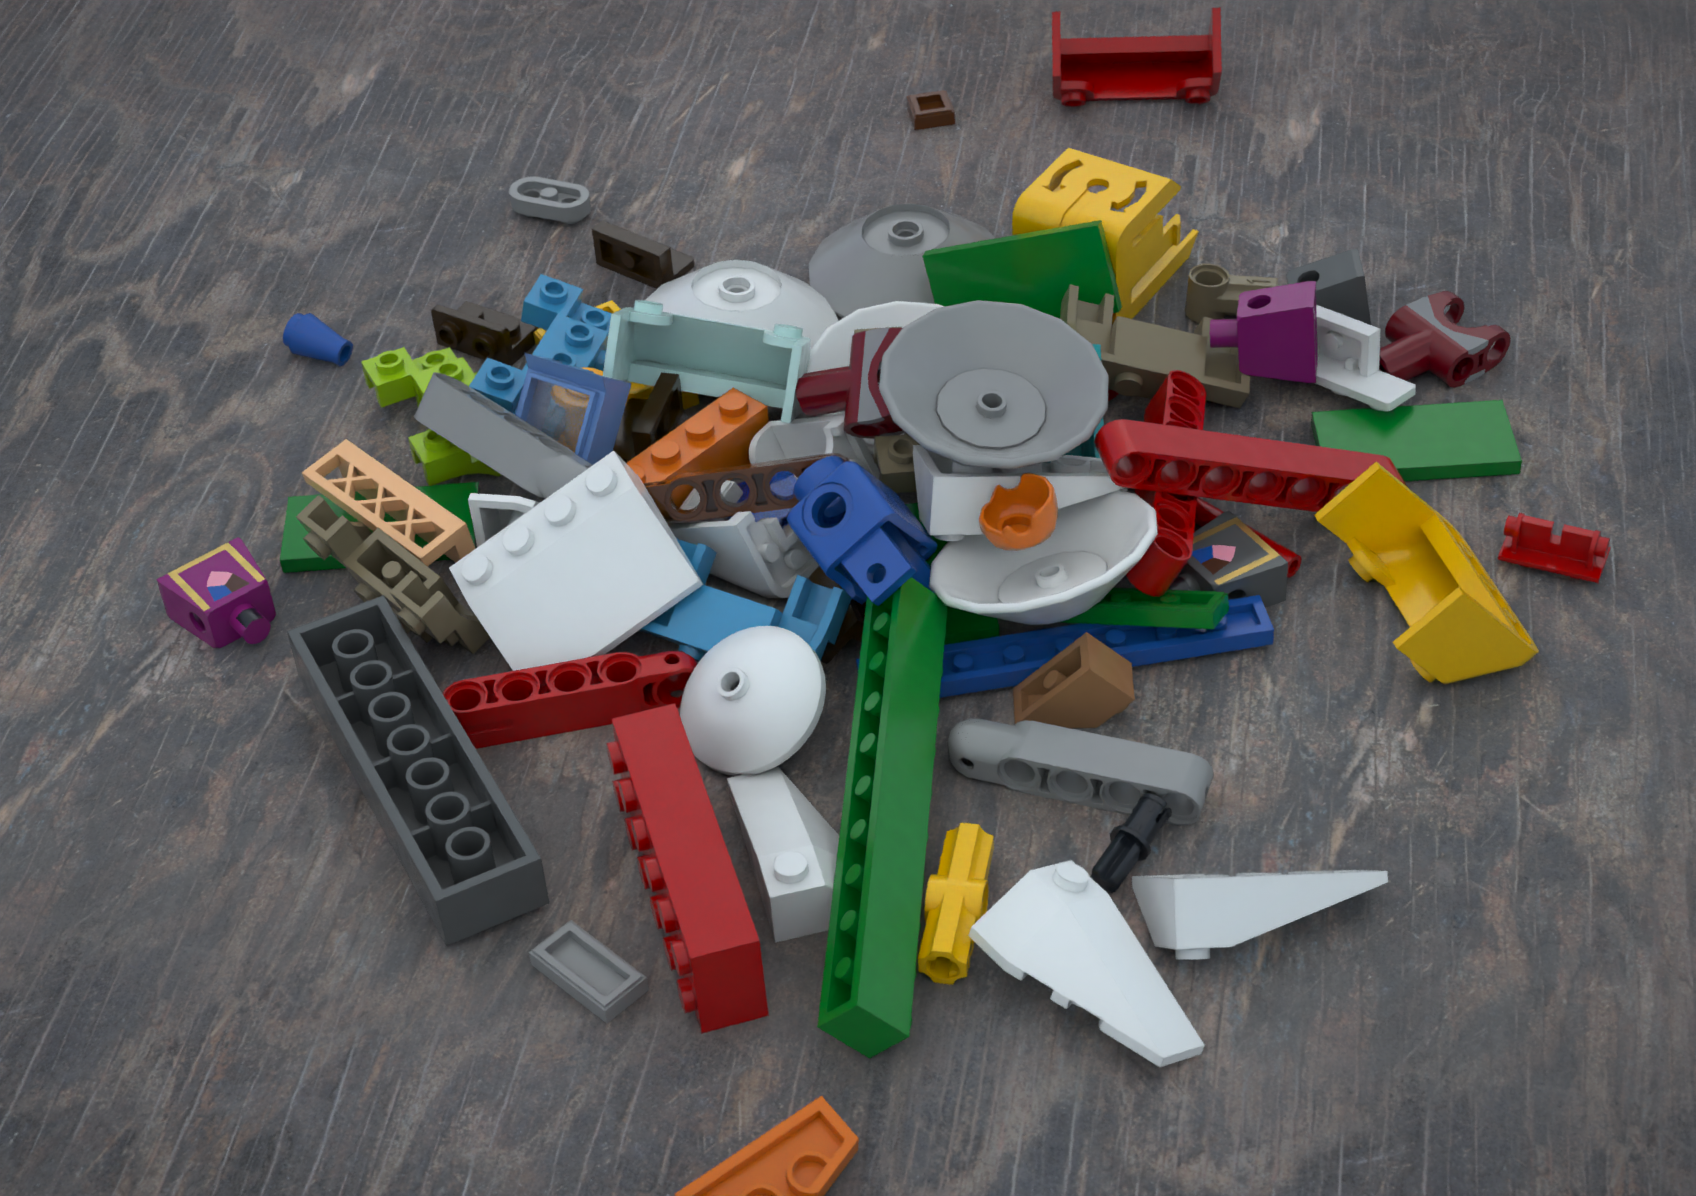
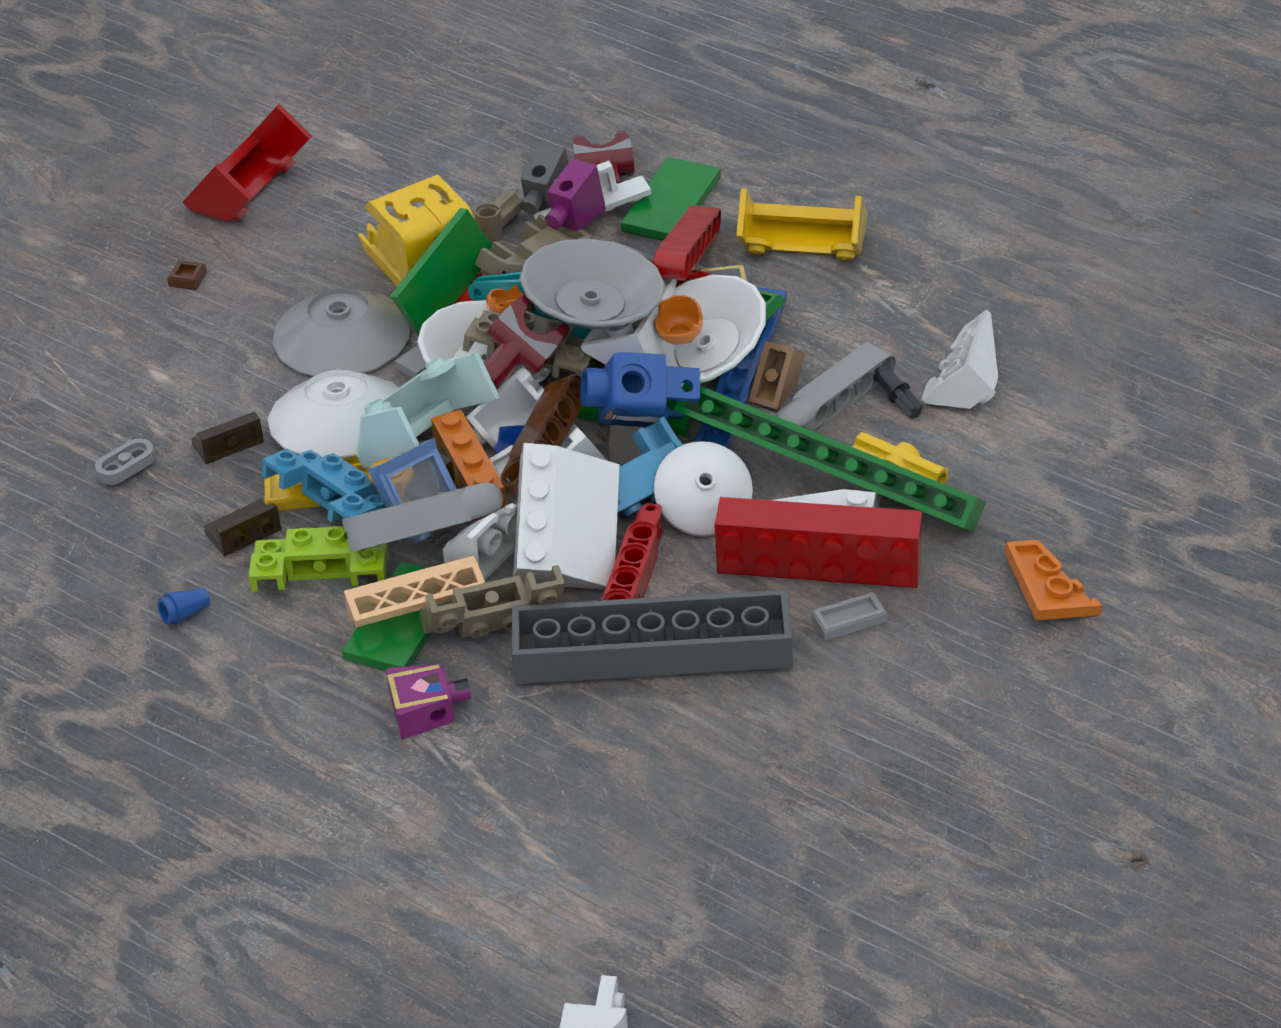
camera: 65 degrees left, 0 degrees up
(1080, 946) = (955, 427): white wedge -> none
(1575, 553) = (792, 185): red hinge -> none

